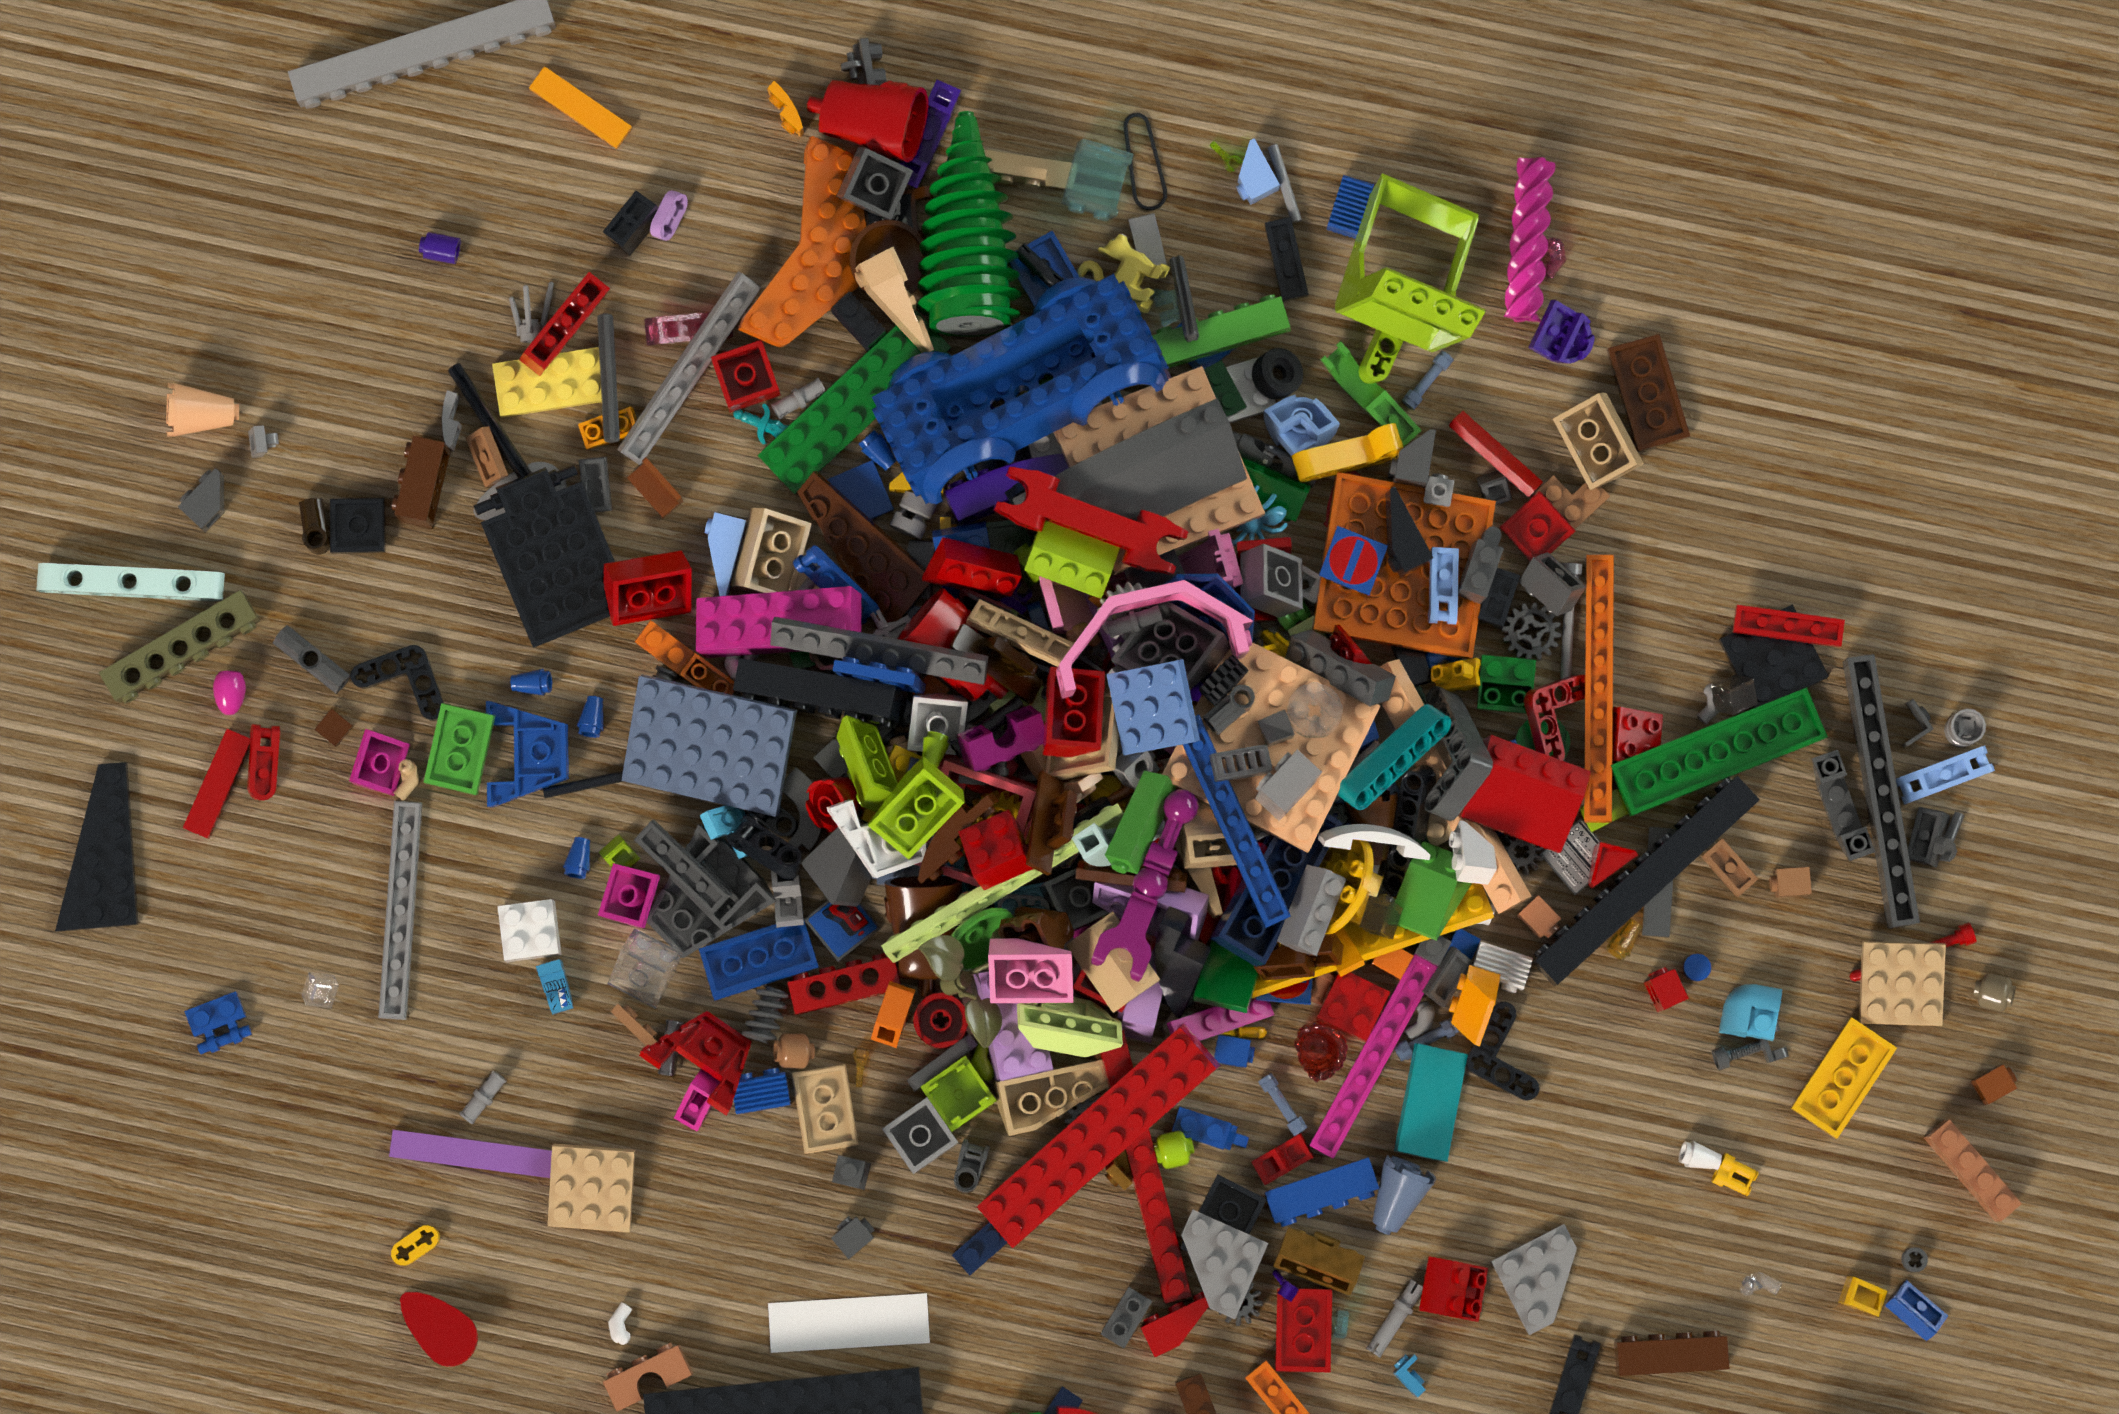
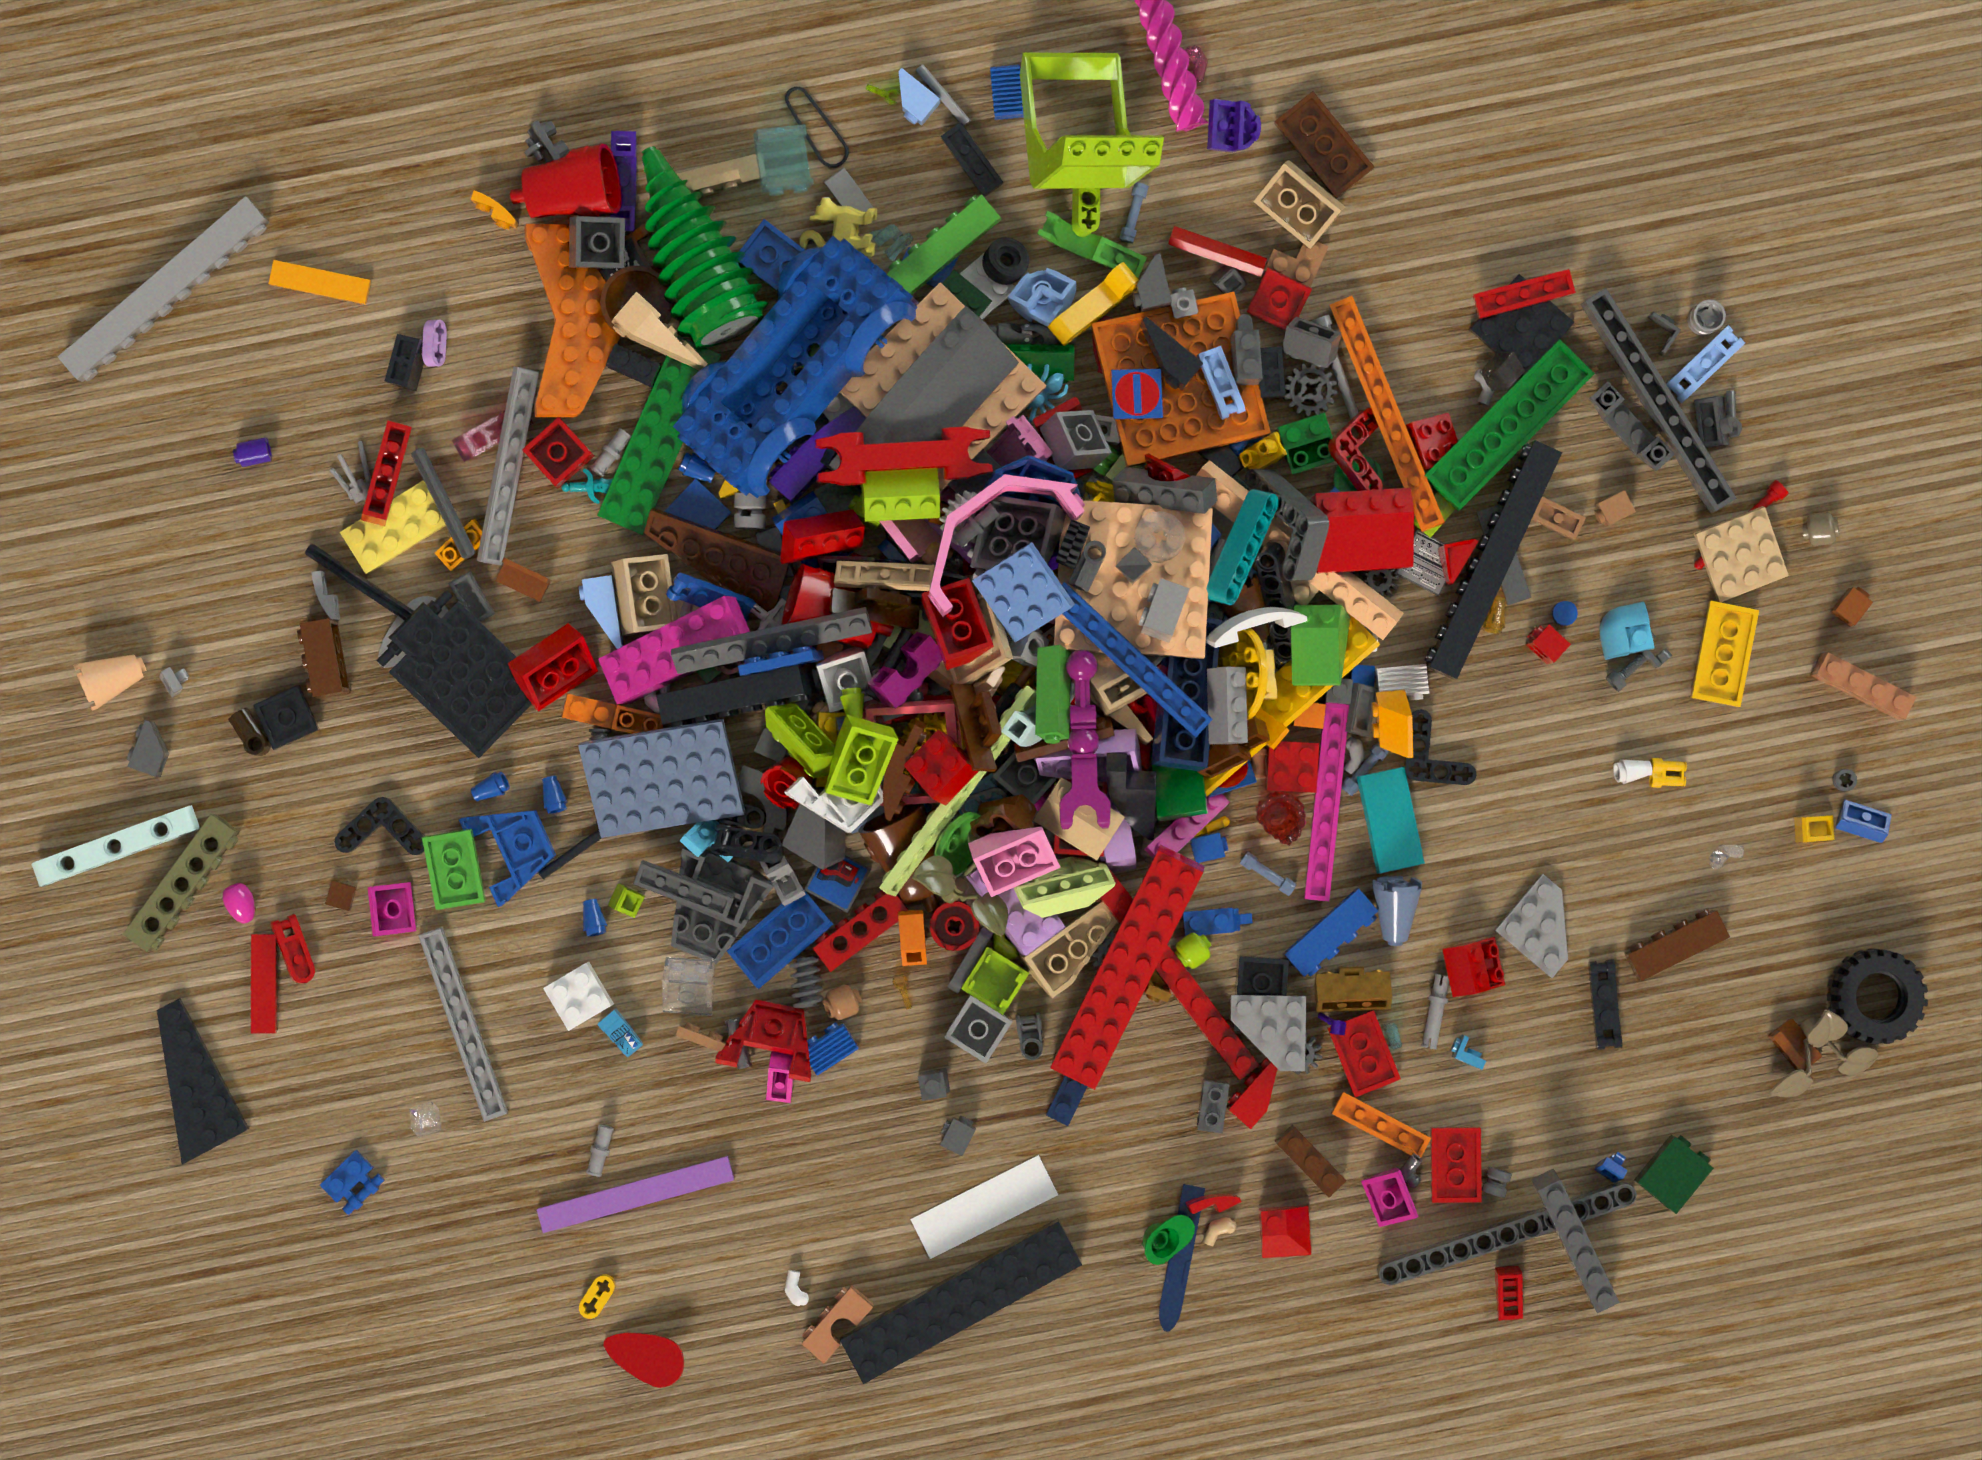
camera: 25 degrees left, 5 degrees up
(324, 670) = (282, 843): dark grey piece -> none
(409, 777) = (423, 912): tan arm -> none
(487, 456) = (369, 613): medium nougat plate -> none
(591, 1187) = (722, 1187): tan plate -> none
(628, 895) = (649, 932): dark pink slope -> none
(825, 1109) = (889, 1038): tan tile -> none
(1017, 600) = (869, 546): dark purple tile -> none
(1038, 266) = (765, 255): black pin -> none
(1184, 298) = (900, 230): dark grey axle -> none
(1257, 758) = (1129, 598): flat silver slope -> none
(1282, 1159) = (1287, 919): red slope -> none
(1381, 916) = (1286, 684): clear smoke brick -> none
(1472, 855) = (1342, 601): white slope -> none
(1539, 918) = (1417, 627): nougat brick -> none

